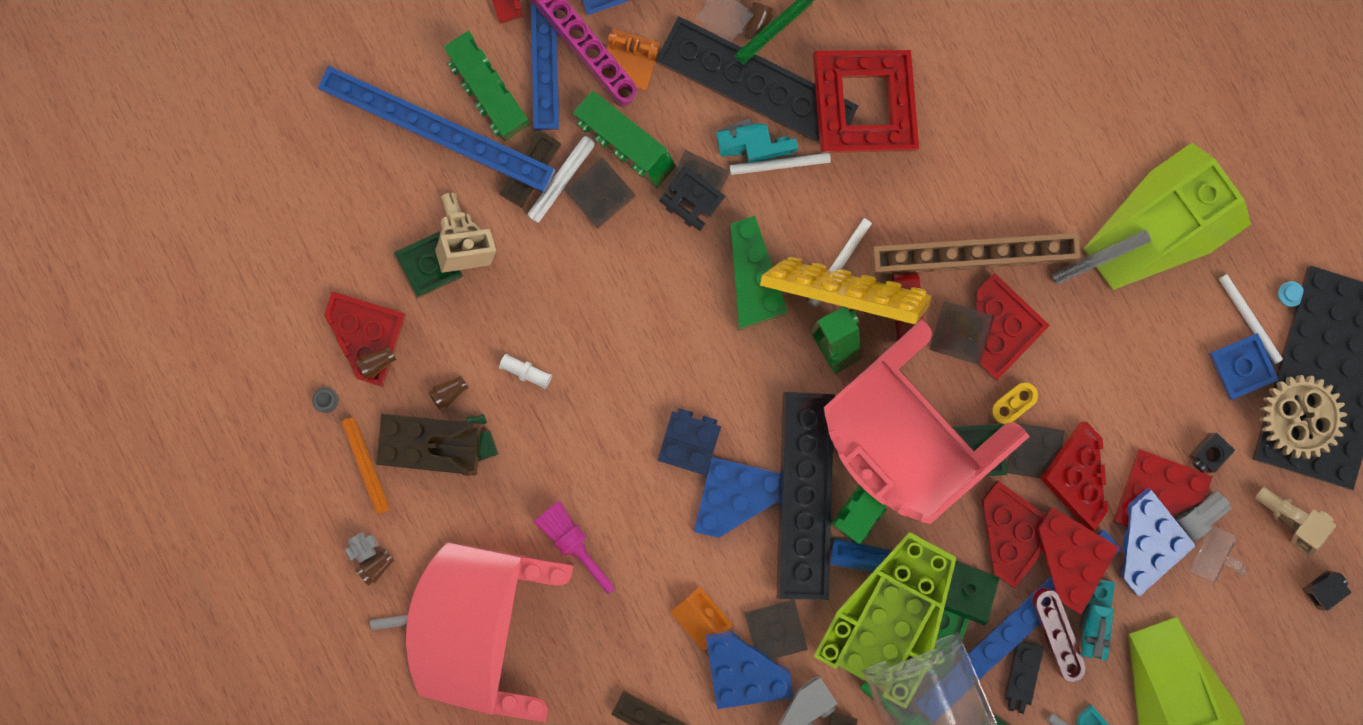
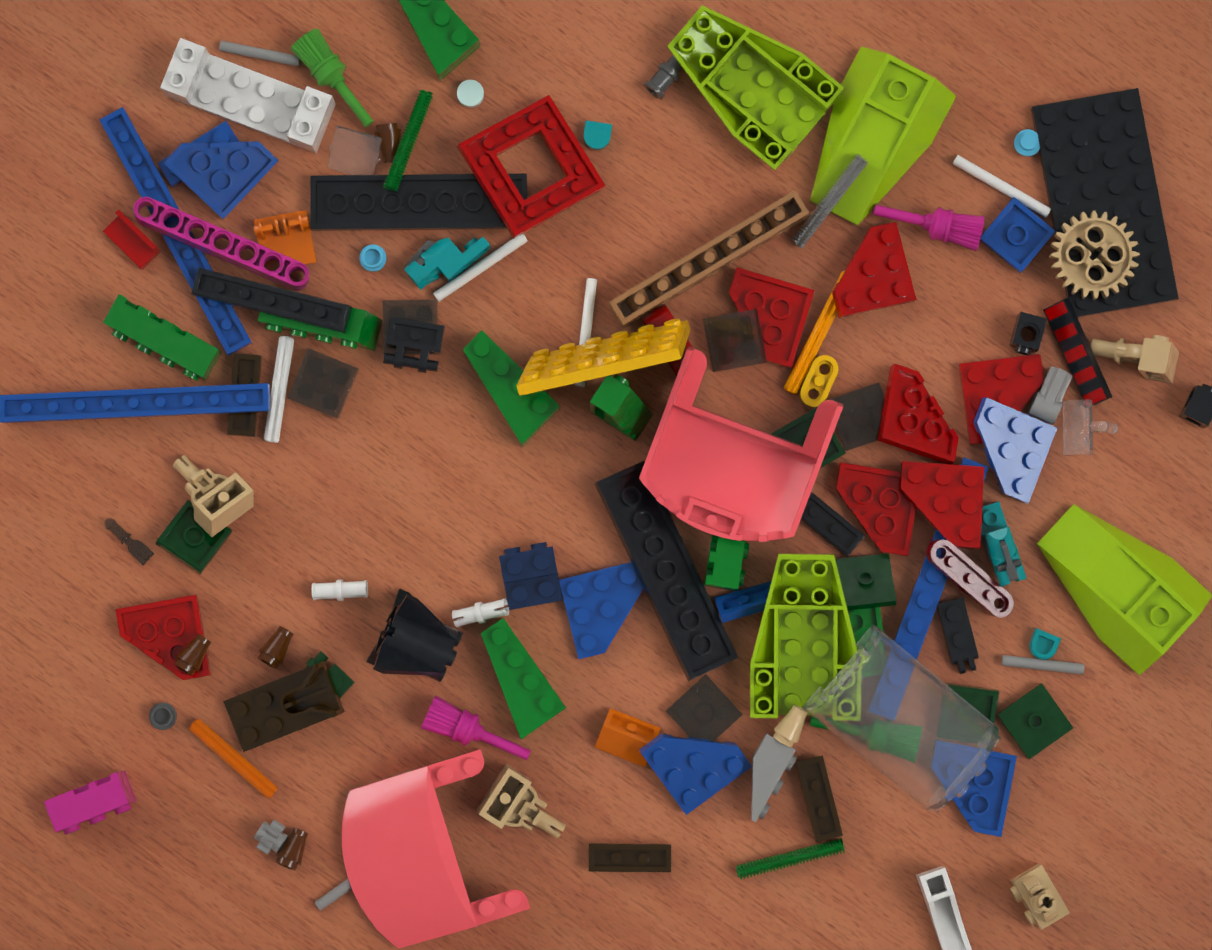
camera: 25 degrees left, 0 degrees up
(228, 441) = (90, 802): none -> dark pink wedge
(375, 249) = (135, 547): none -> clear smoke piece
(564, 446) = (414, 641): none -> black brick
(578, 623) = (513, 801): none -> tan brick
(593, 101) = (271, 300): none -> black tile
(632, 450) = (480, 612): none -> white pin
(637, 526) = (522, 682): none -> green wedge
(694, 110) = (372, 258): none -> medium azure plate
(843, 681) = (790, 726): none -> tan cone
(845, 16) = (470, 93): none -> light aqua tile
(933, 104) = (597, 135): none -> teal tile
(963, 531) = (831, 525): none -> black tile
(1021, 81) = (663, 78): none -> dark grey pin
(1034, 362) = (812, 345): none -> light orange axle
(1088, 127) = (754, 83): none -> lime wedge
(1107, 338) = (875, 274): none -> red plate
(1185, 325) = (941, 225): none -> dark pink piece
(1245, 490) = (1077, 352): none -> tile

